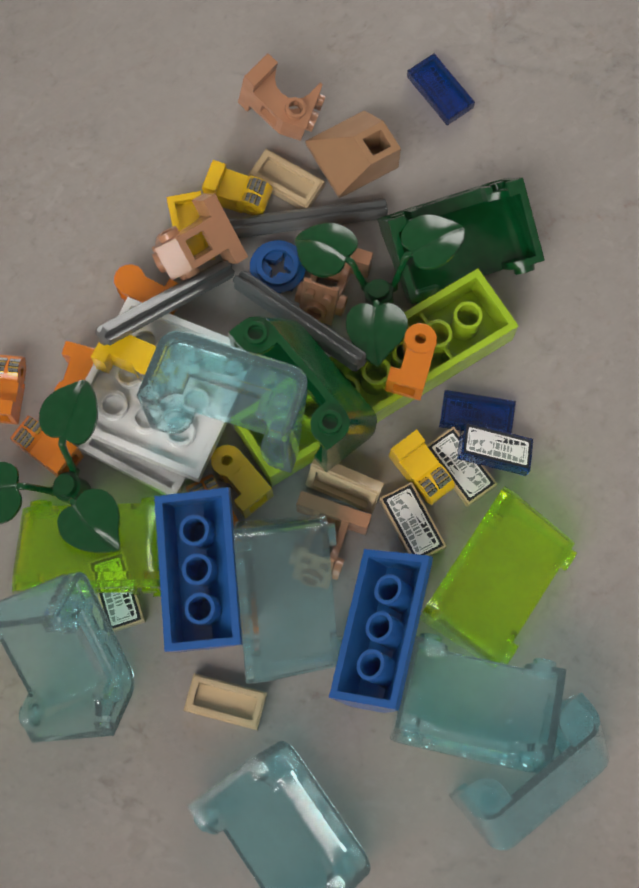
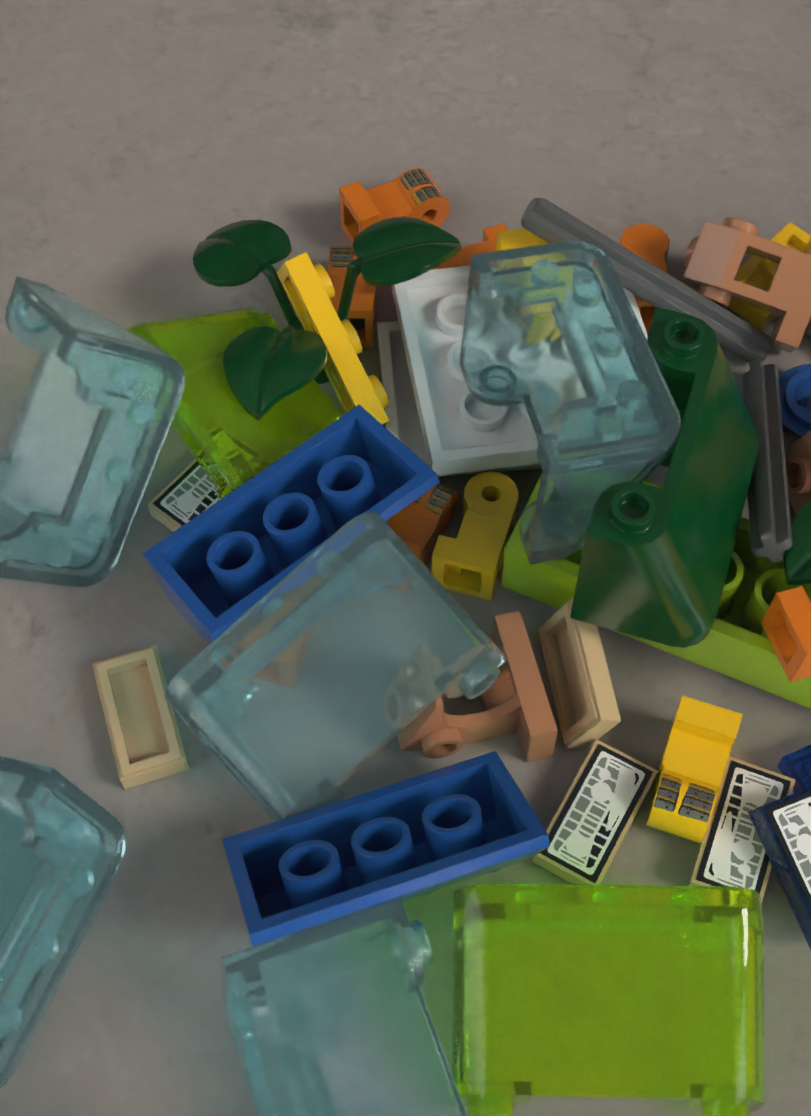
camera: 60 degrees right, 15 degrees down
(60, 476) = (310, 295): none -> yellow plate

